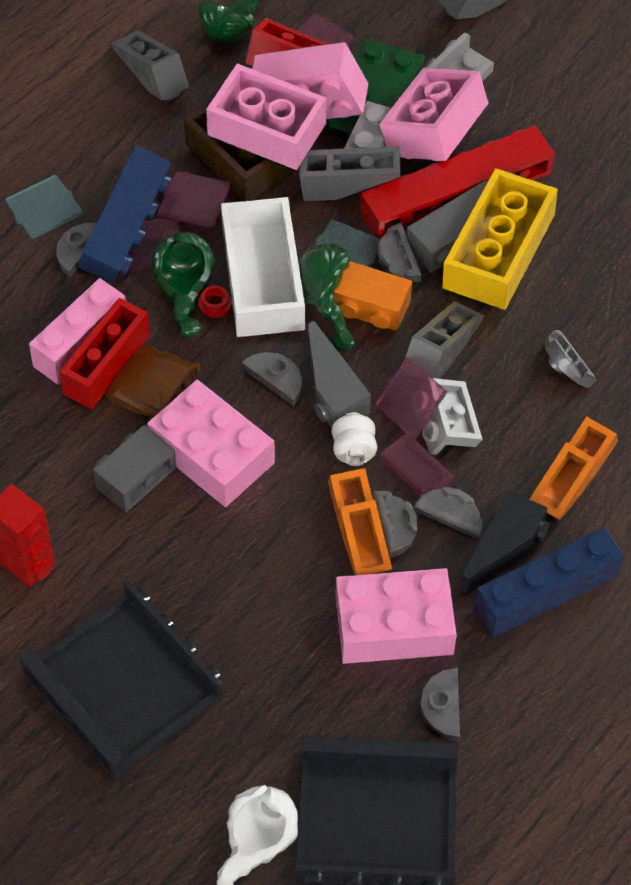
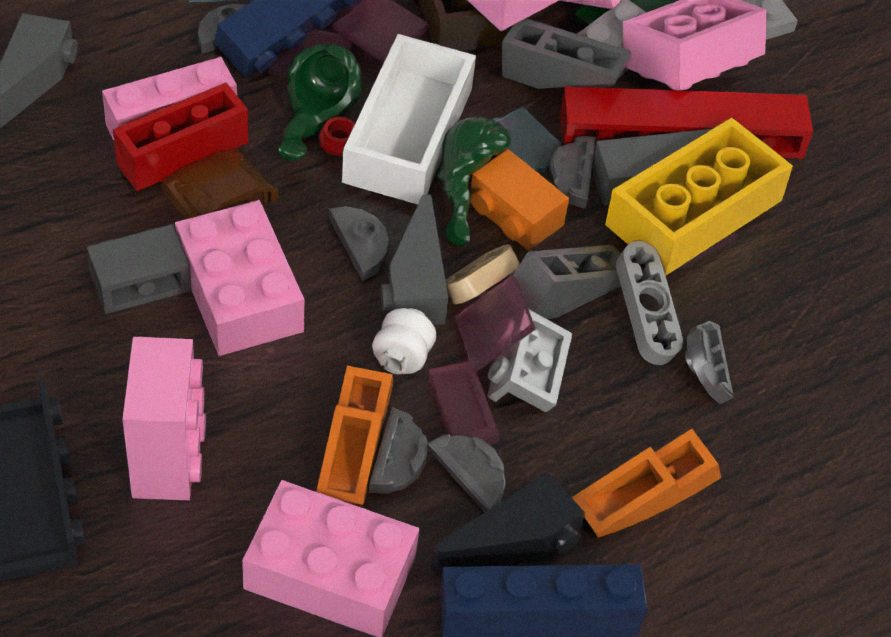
camera: 20 degrees right, 5 degrees down
(234, 570) = (164, 418): none -> bright pink brick
(379, 363) = (481, 274): none -> tan beam
(505, 349) = (643, 320): none -> light grey beam

